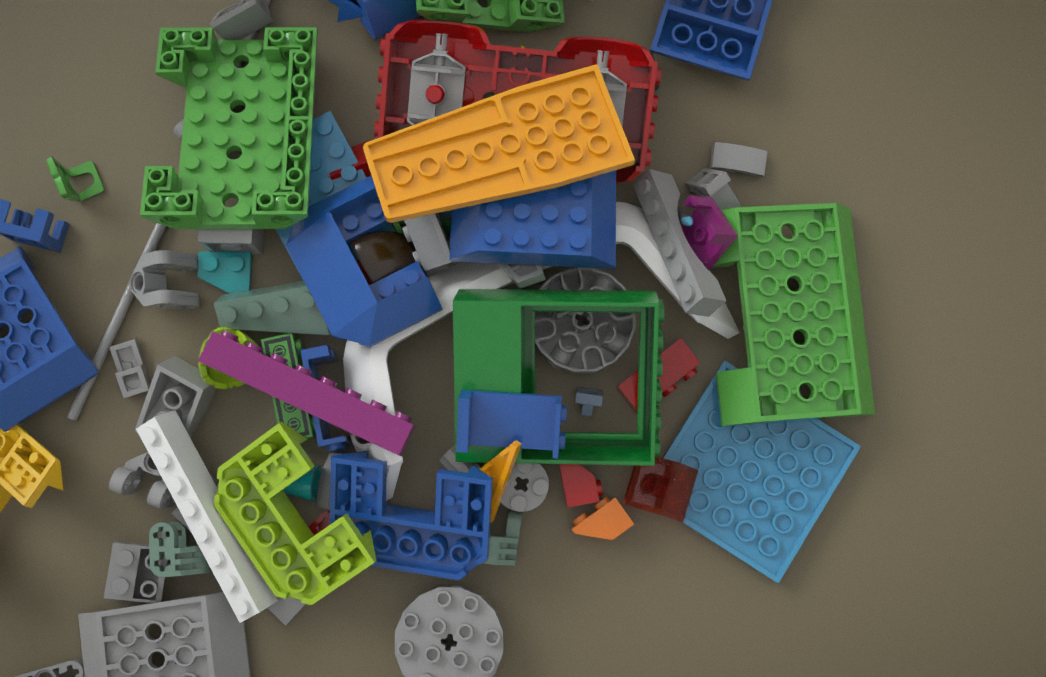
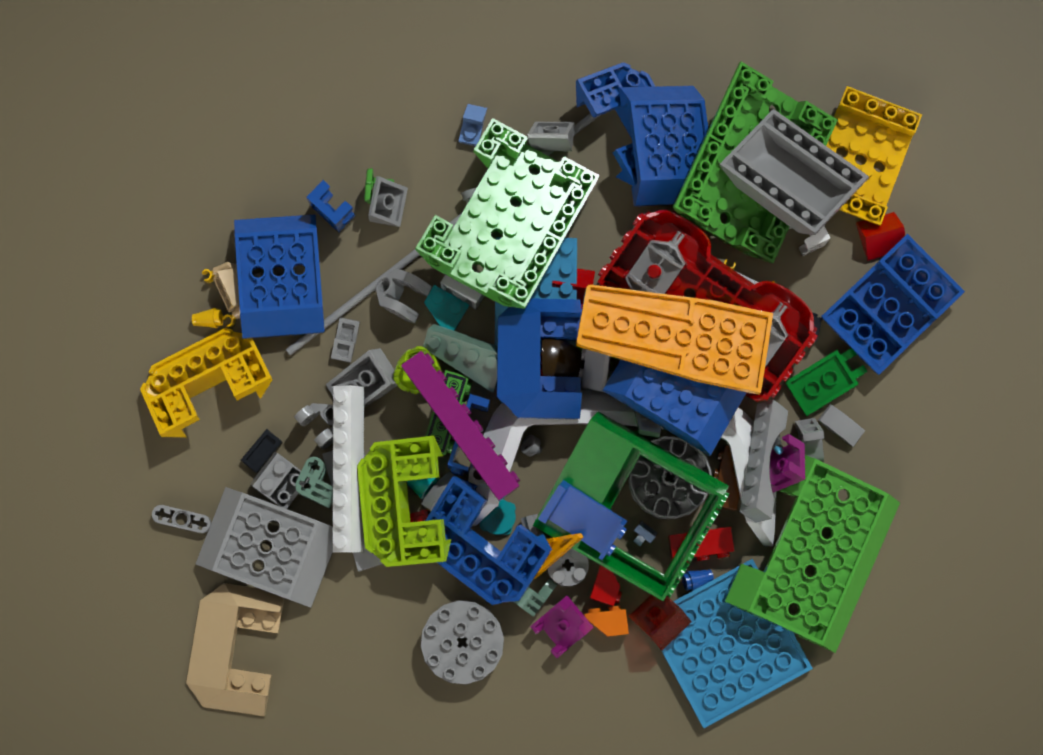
camera: 25 degrees right, 0 degrees up
(93, 188) = (387, 202): none -> light grey slope
(99, 548) = (261, 451): none -> black tile
(145, 47) = (472, 125): none -> medium blue slope
(406, 371) = (531, 446): none -> light grey tile
(416, 473) = (500, 519): none -> teal piece
(555, 555) = (563, 625): none -> magenta panel
(643, 280) = (727, 475): none -> reddish brown slope
(675, 418) = (696, 579): none -> blue cone
(692, 121) = (824, 381): none -> green tile

